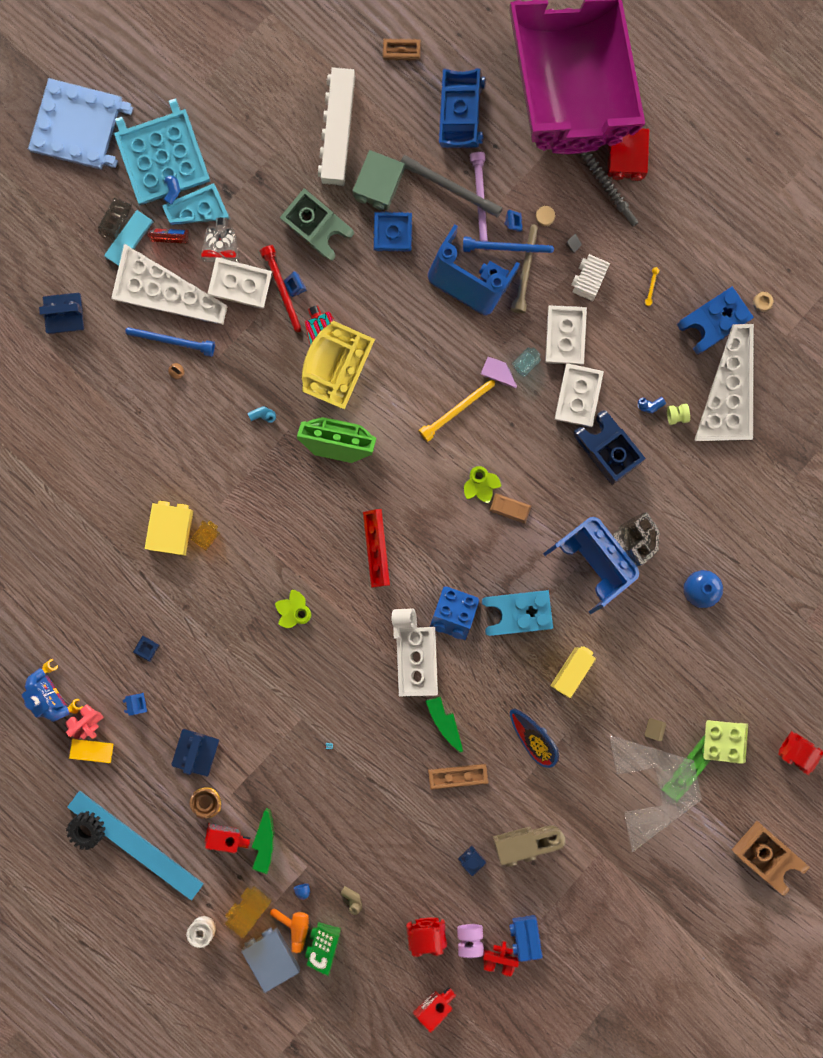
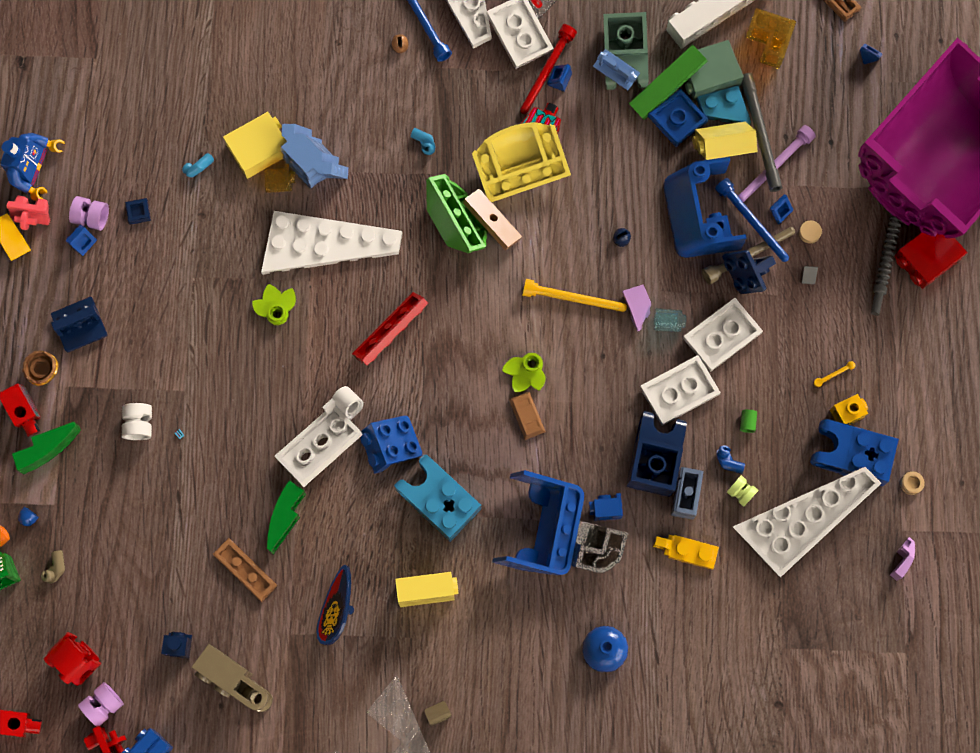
camera: 50 degrees right, 10 degrees down
(125, 678) = (85, 212): none -> lavender wheel
(150, 581) = (193, 170): none -> dark azure arm
(209, 500) = (309, 156): none -> medium blue slope
(271, 547) = (315, 242): none -> white wing
(298, 768) = (136, 421): none -> white wheel
(327, 243) = (616, 69): none -> medium blue hinge
(364, 217) = (668, 81): none -> bright green tile
(367, 417) = (492, 219): none -> tile
(391, 114) = (774, 33): none -> clear yellow brick
(411, 193) = (724, 105): none -> dark azure wing
(439, 216) = (725, 140): none -> light yellow brick
(446, 343) = (624, 240): none -> dark blue hinge
(458, 64) = (869, 54): none -> blue slope
(461, 109) = (833, 84): blue piece -> none
(541, 281) = (747, 270): none -> dark blue bracket
(590, 278) = (792, 312): white brick -> none
(615, 510) = (606, 507): none -> blue brick
(636, 369) = (748, 421): none -> bright green hinge
(652, 450) = (687, 493): none -> sand blue brick
(685, 299) = (850, 410): none -> yellow brick
(686, 482) = (688, 550): none -> yellow hinge
(810, 353) = (907, 551): none -> lavender slope

